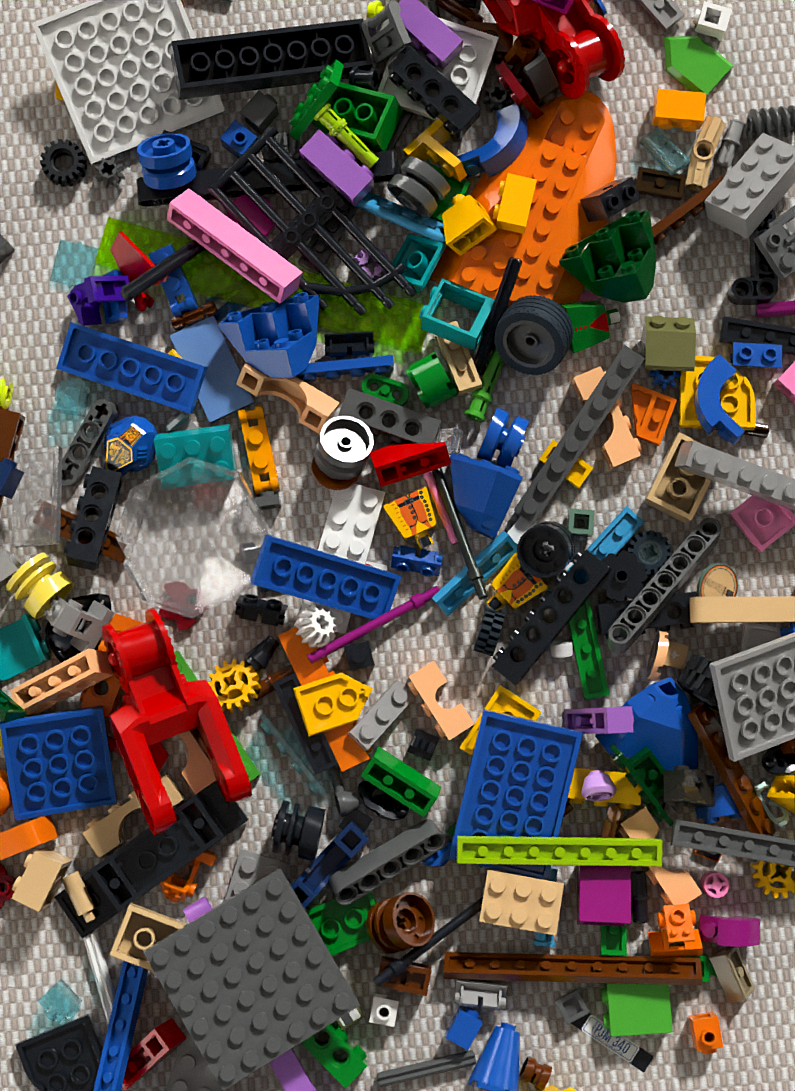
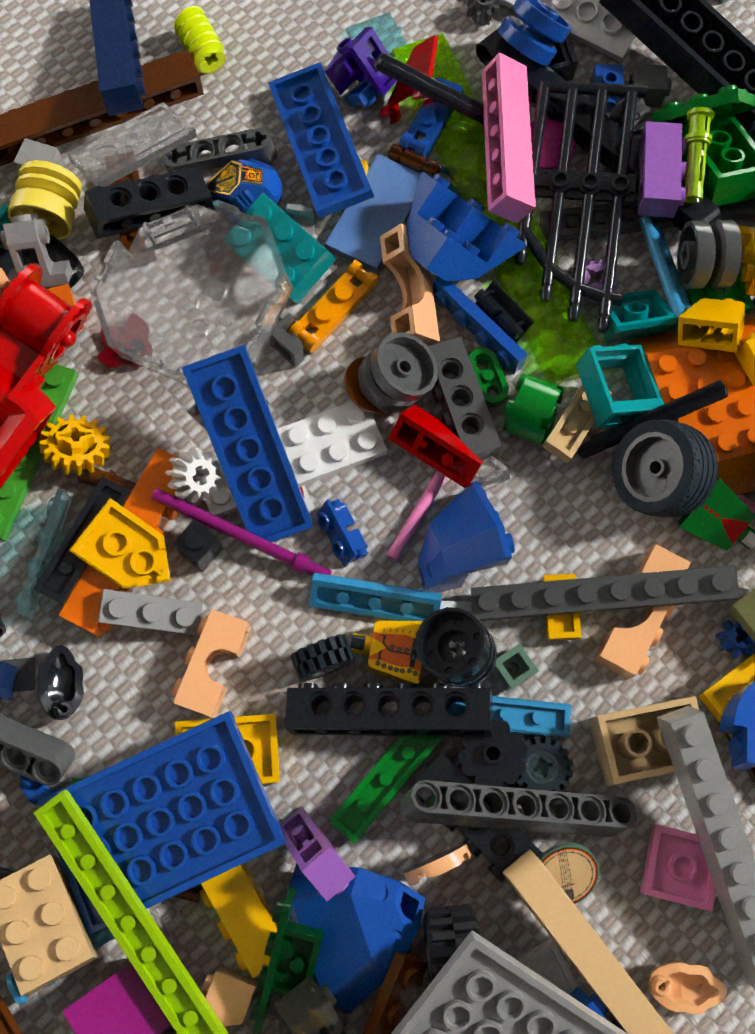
camera: 45 degrees right, 10 degrees down
(72, 397) = (252, 111): clear light blue brick -> none
(261, 654) = (129, 450): black cone -> none
(272, 610) = (171, 406): black hinge -> none
(345, 801) = (32, 644): dark grey bar -> none
(401, 781) = (91, 686): green brick -> none
(413, 517) = (384, 494): torso -> none
(423, 744) = (152, 682): black tile -> none
(474, 573) = (373, 592): pearl dark grey bar -> none
(482, 397) = (560, 472): bright green pin -> none
(503, 439) = (535, 518): blue wheel -> none
(561, 648) = (365, 752): white piece -> none
(598, 786) = (236, 910): lavender cone -> none
(611, 823) = (208, 960): nougat axle -> none
(650, 413) = (687, 655): orange wing -> none
(676, 655) = (454, 885): tan tile -> none

